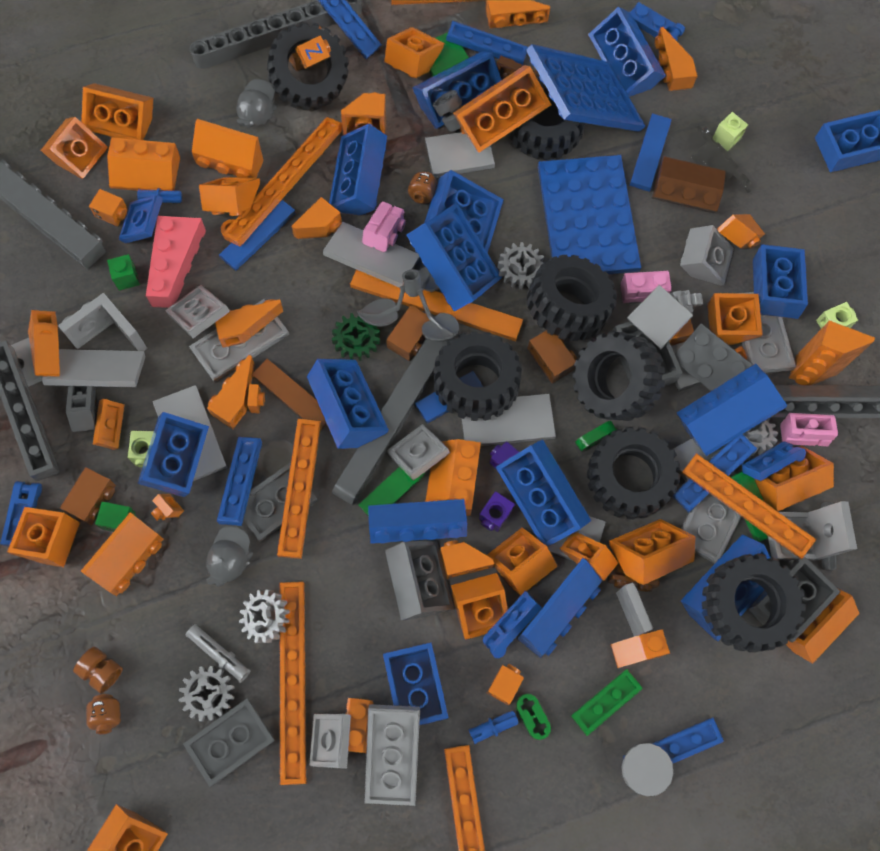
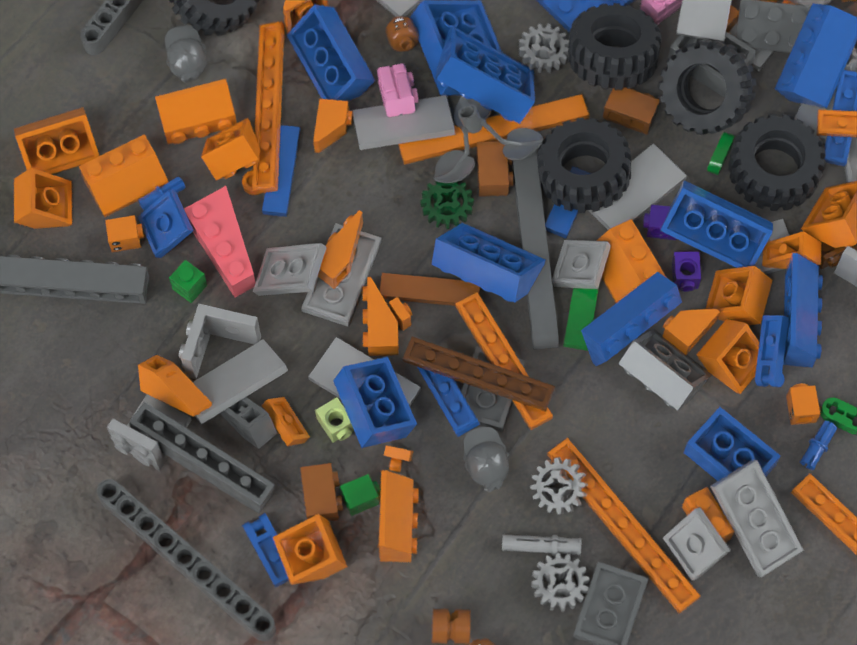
camera: 30 degrees left, 5 degrees down
(270, 486) = (479, 373): none -> reddish brown tile

